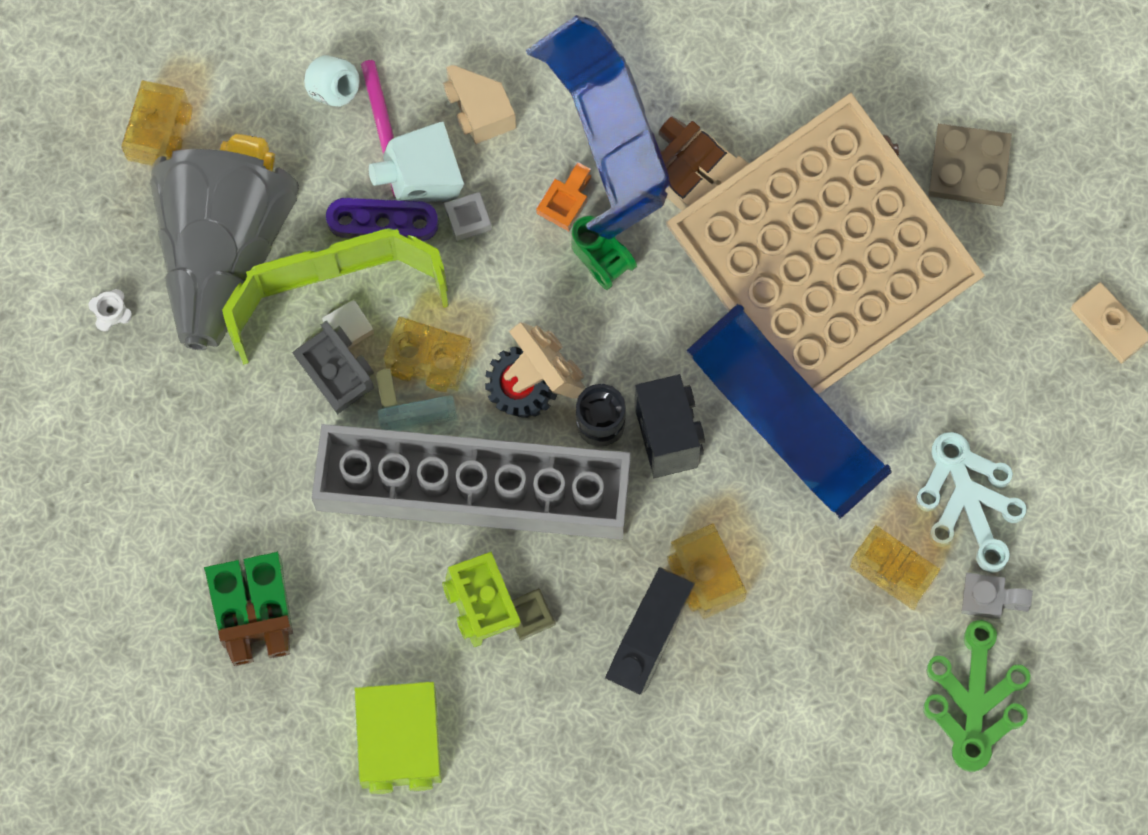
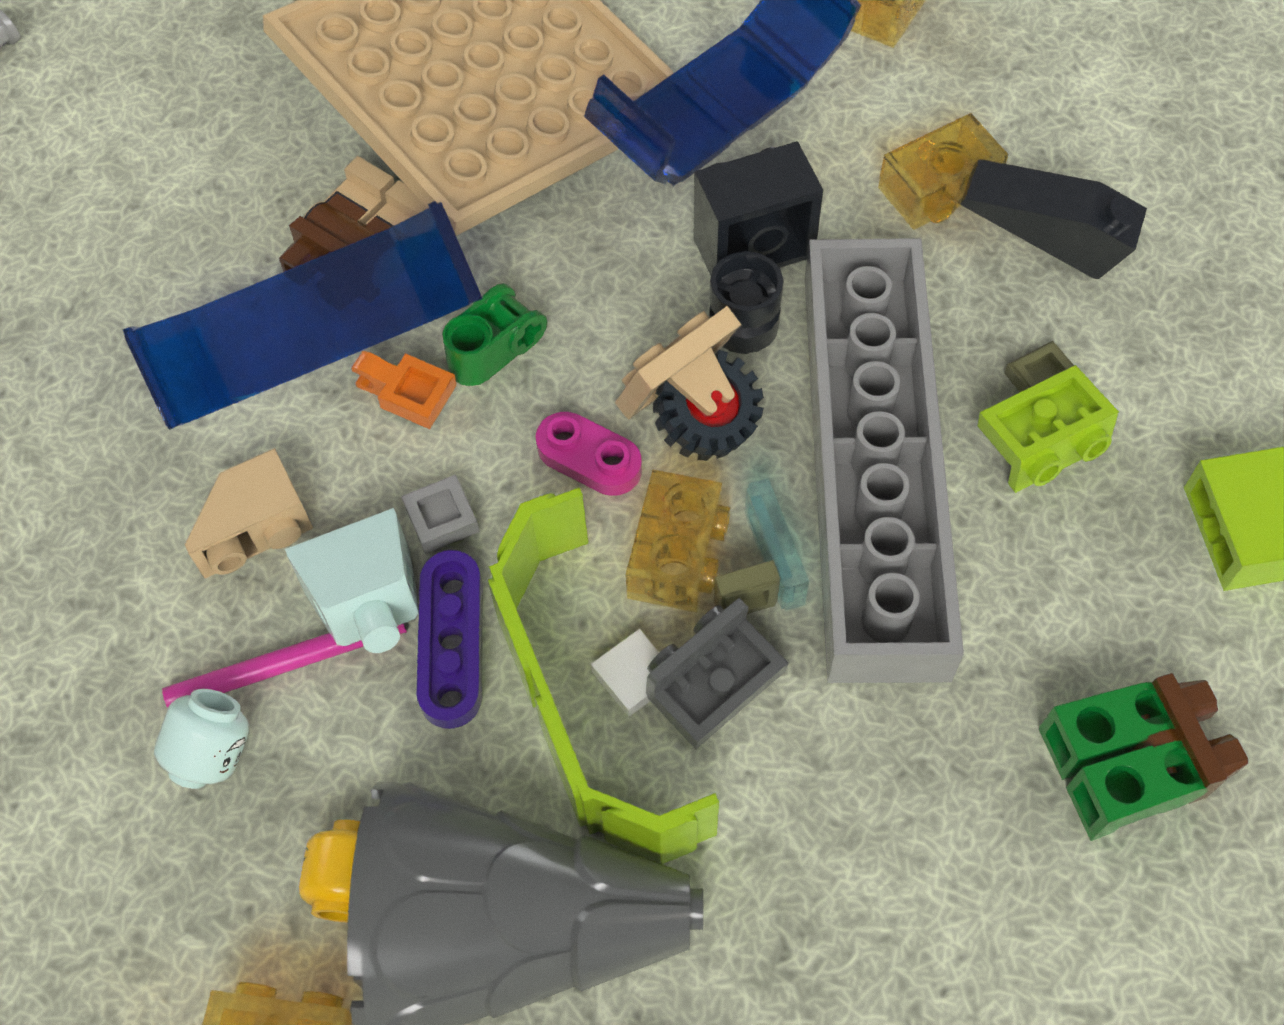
camera: 95 degrees left, 10 degrees down
(506, 309) = (585, 451): none -> dark pink plate

